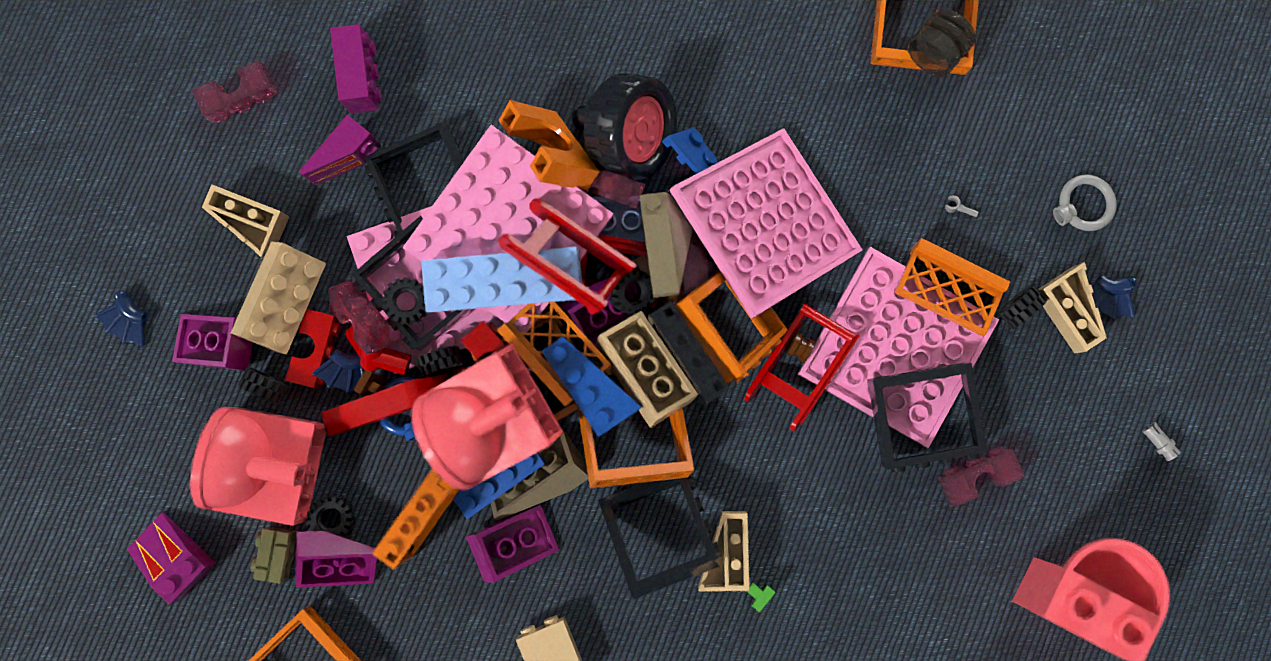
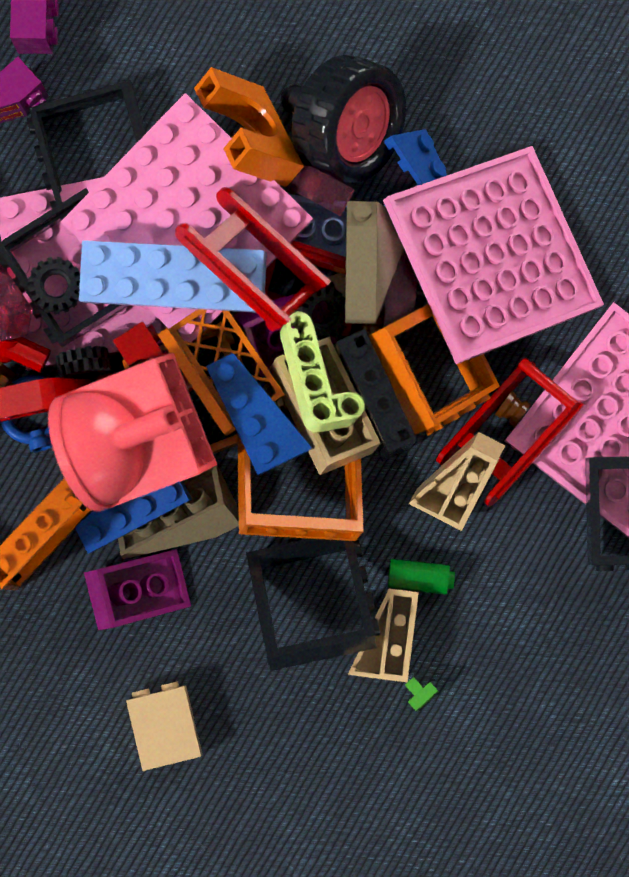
camera: 10 degrees right, 0 degrees up
(635, 343) = (315, 372): none -> yellowish green beam
(745, 497) = (420, 576): none -> green brick
(767, 415) = (459, 482): none -> tan wedge

